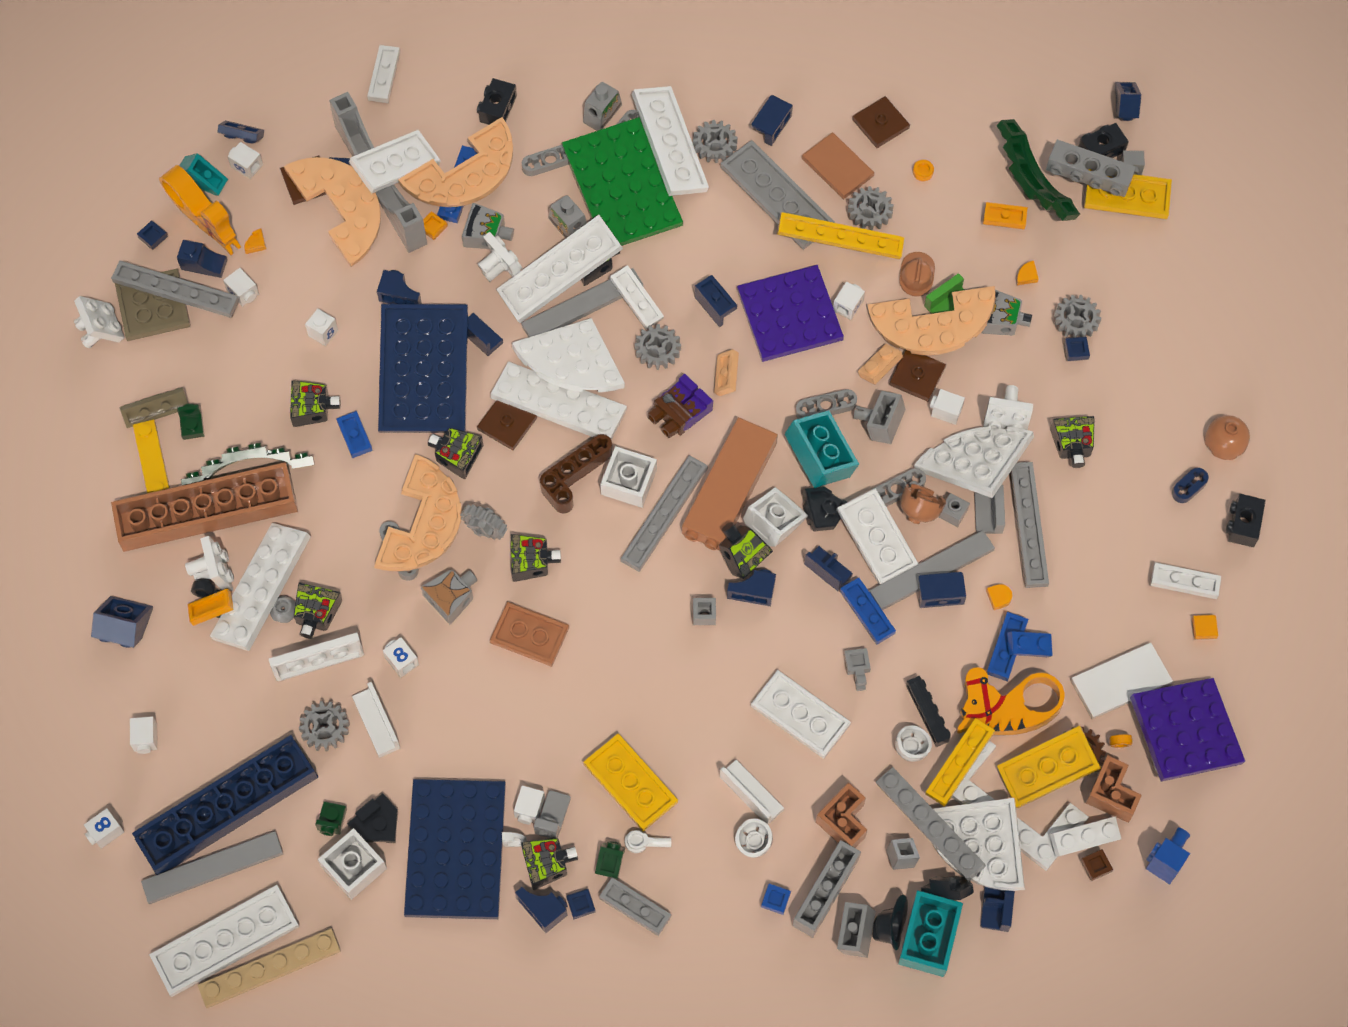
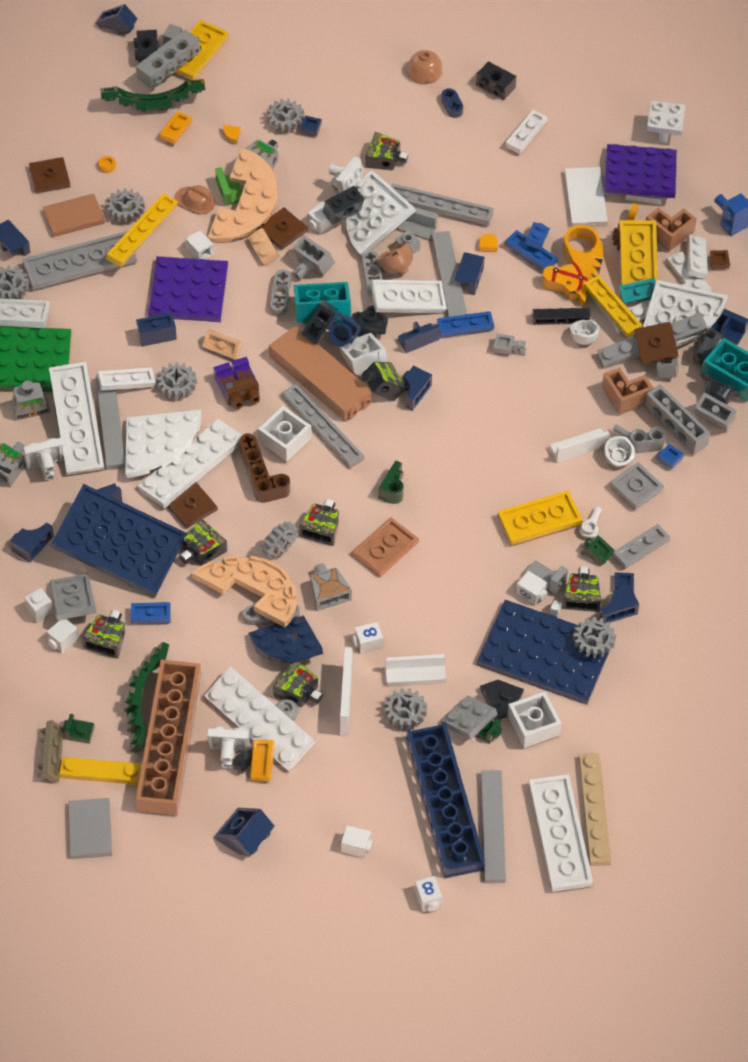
camera: 70 degrees left, 10 degrees down
(82, 477) = (90, 828): none -> light grey tile
(295, 363) = (62, 635): none -> white brick
(334, 795) = (469, 717): none -> light grey plate
(342, 353) = (72, 596): none -> light grey tile
(358, 582) = (287, 644): none -> dark blue plate
(472, 898) = (593, 638): none -> light grey gear
(623, 608) = (391, 483): none -> dark green plate
(704, 605) = (421, 423): light grey plate -> none
(718, 874) = (636, 485): none -> light grey plate
(783, 453) = (319, 321): none -> black brick
(788, 485) = (342, 332): none -> dark blue piece
(788, 864) = (644, 441): none -> light grey beam
(800, 714) = (528, 394): white tile -> none
(920, 827) = (656, 343): none -> reddish brown plate
(962, 419) = (343, 205): none -> black brick
(998, 782) = (637, 290): none -> teal plate
(1205, 627) = (565, 135): light orange tile -> none
(1278, 730) = (665, 119): none -> white plate

